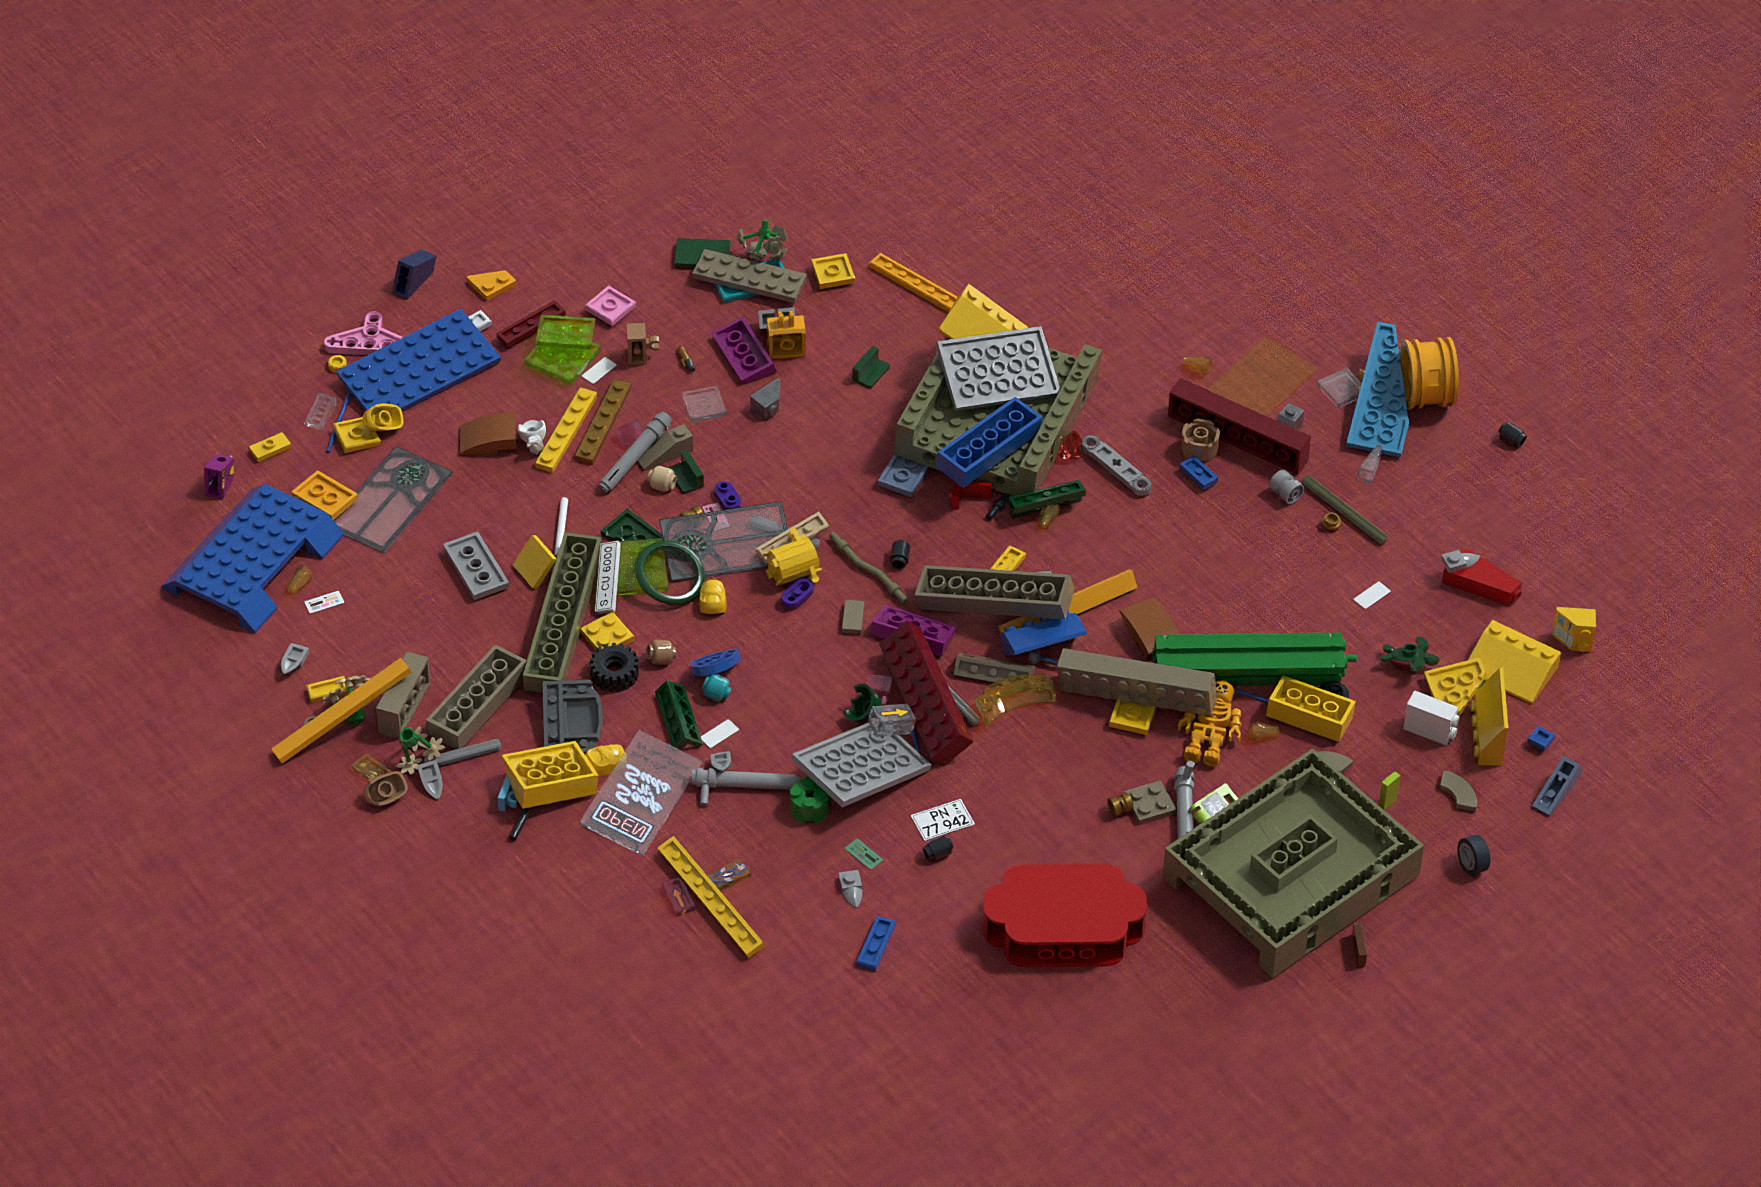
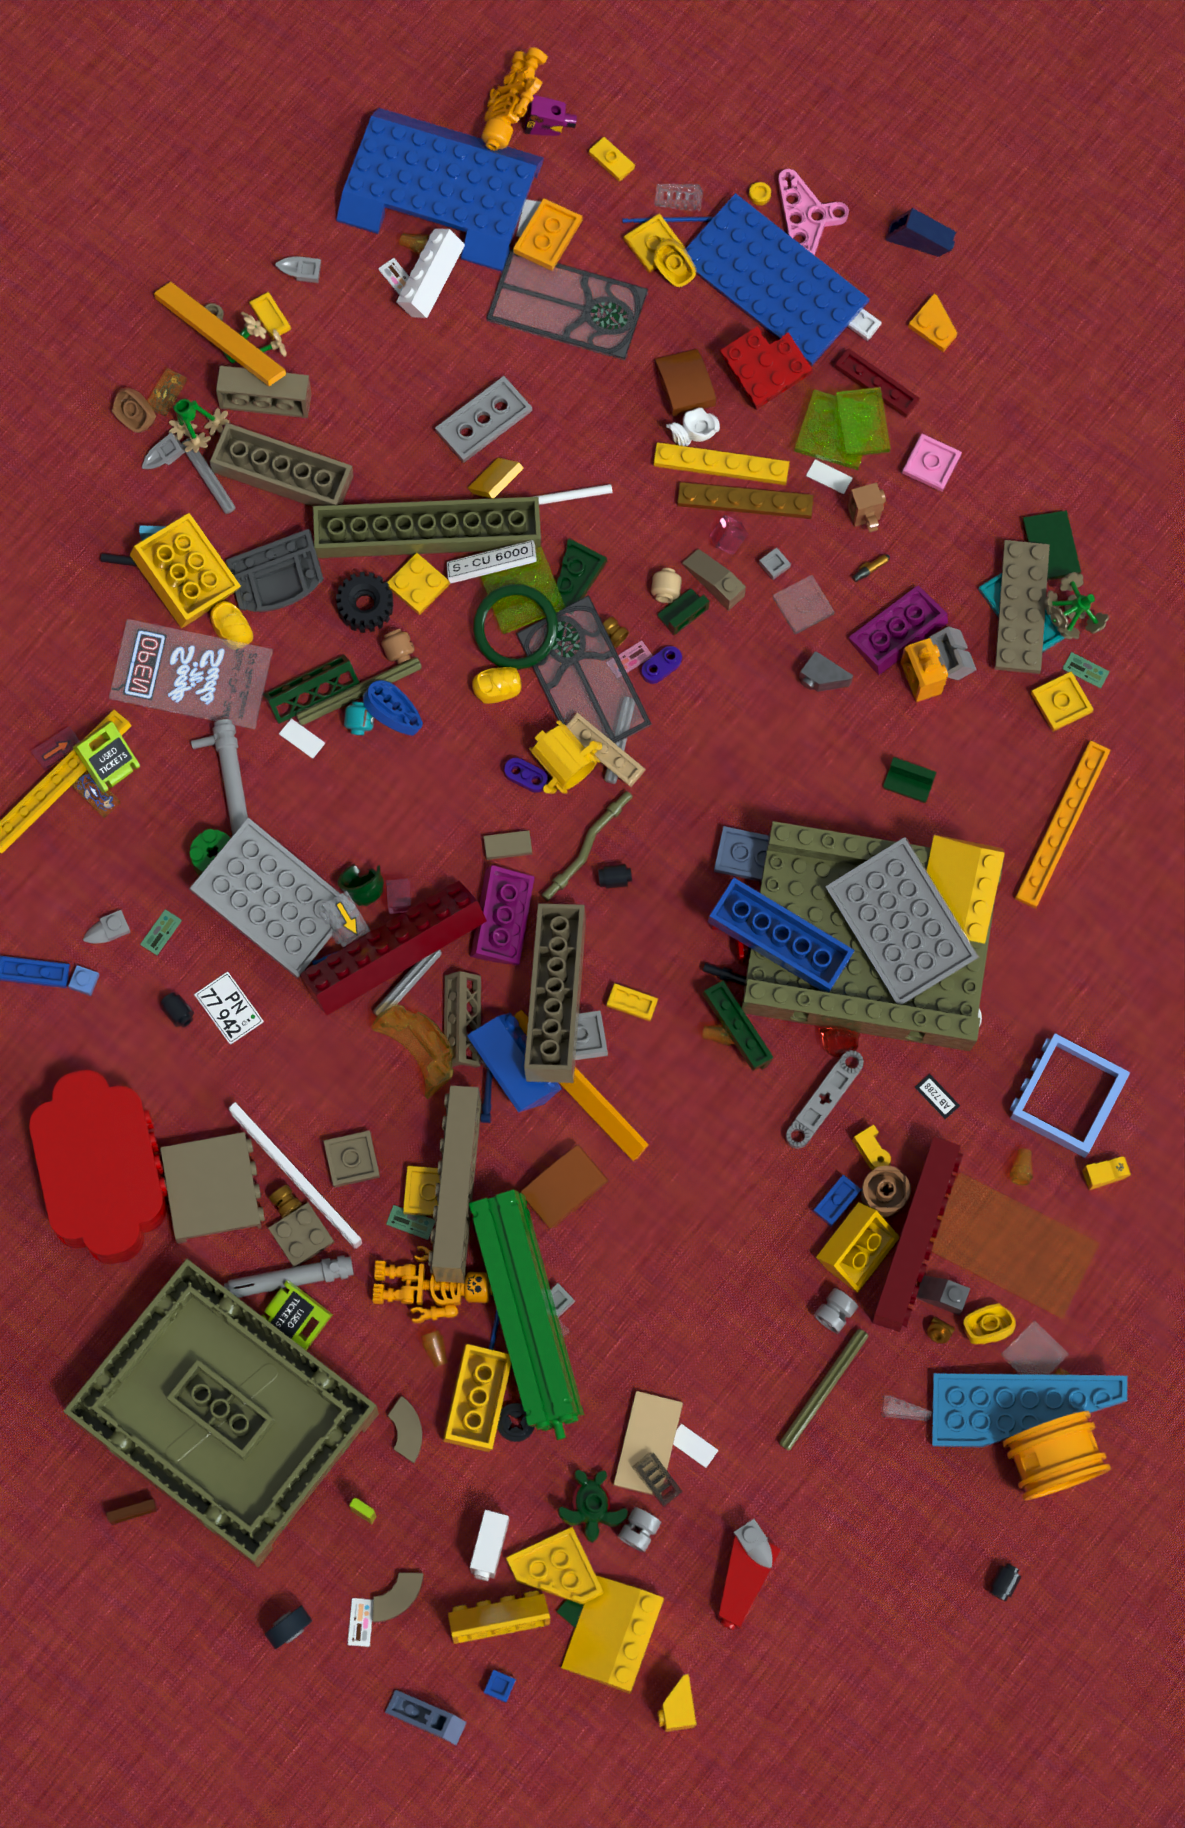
camera: 75 degrees right, 25 degrees up
(204, 493) = (505, 104): none -> light orange piece
(333, 571) = (430, 273): none -> white brick
(496, 379) = (765, 368): none -> red piece
(653, 431) = (722, 555): light grey cylinder -> none
(666, 407) = (774, 563): none -> light grey plate
(690, 687) = (357, 691): none -> olive axle
(705, 853) = (110, 760): none -> lime container
(721, 761) = (249, 747): light grey plate -> none
(812, 253) = (1086, 670): none -> clear green sticker
(893, 909) = (83, 980): none -> medium blue plate
(1094, 757) = (351, 1159): none -> dark tan plate
(1099, 794) = (297, 1178): none -> white tile
(1099, 840) = (212, 1186): none -> dark tan panel
(1128, 404) = (937, 1096): none -> sticker
(1156, 732) = (413, 1224): none -> clear green sticker
(1158, 306) = (1051, 1132): none -> light blue window
(1163, 445) = (870, 1148): none -> yellow leg
(1212, 317) = (1105, 1172): none -> yellow leg
(1236, 467) = (858, 1246): none -> yellow slope
(1316, 434) = (939, 1331): none -> pearl gold plate
(1317, 403) = (989, 1324): none -> yellow piece
(1331, 521) = (797, 1376): pearl gold plate -> none
(1366, 619) = (649, 1430): none -> tan tile
(1386, 620) = (638, 1468): none -> clear smoke slope
(1434, 631) = (643, 1521): none -> light grey wheel
(1474, 819) = (360, 1622): none -> white sticker

